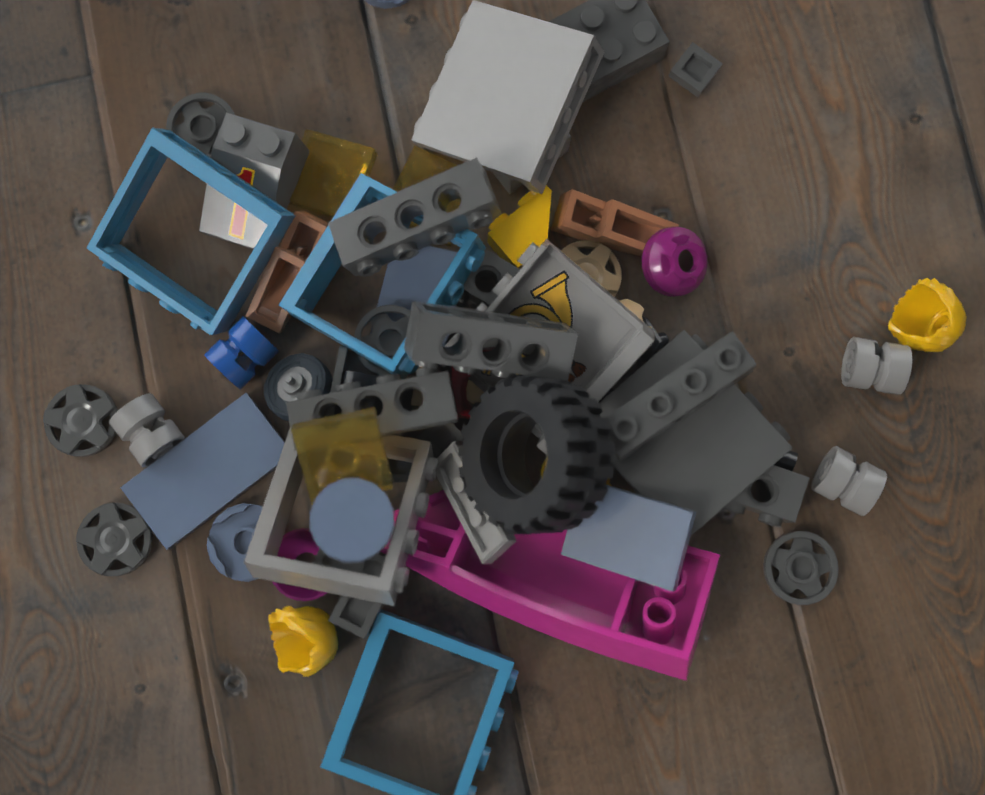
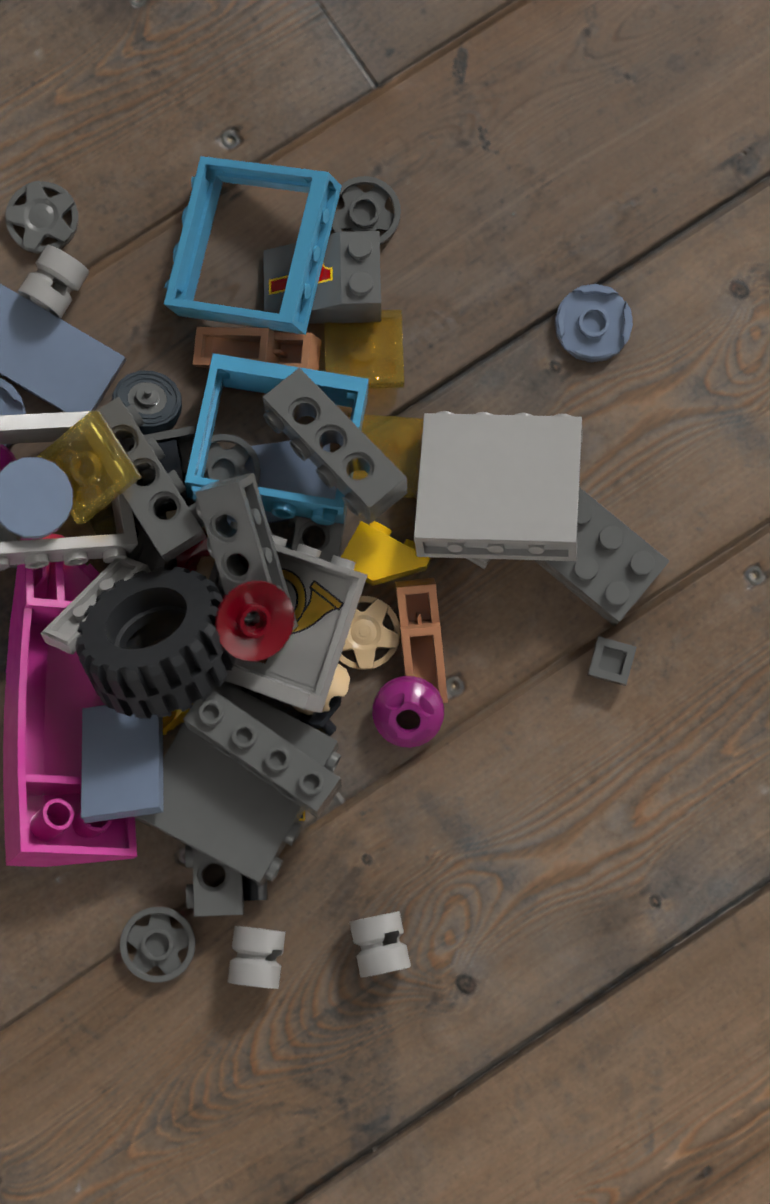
camera: 70 degrees right, 0 degrees up
(244, 338) = (159, 337): blue wheel -> none
(567, 345) = (266, 632): none -> dark red dish
(928, 317) = (447, 978): yellow hair -> none

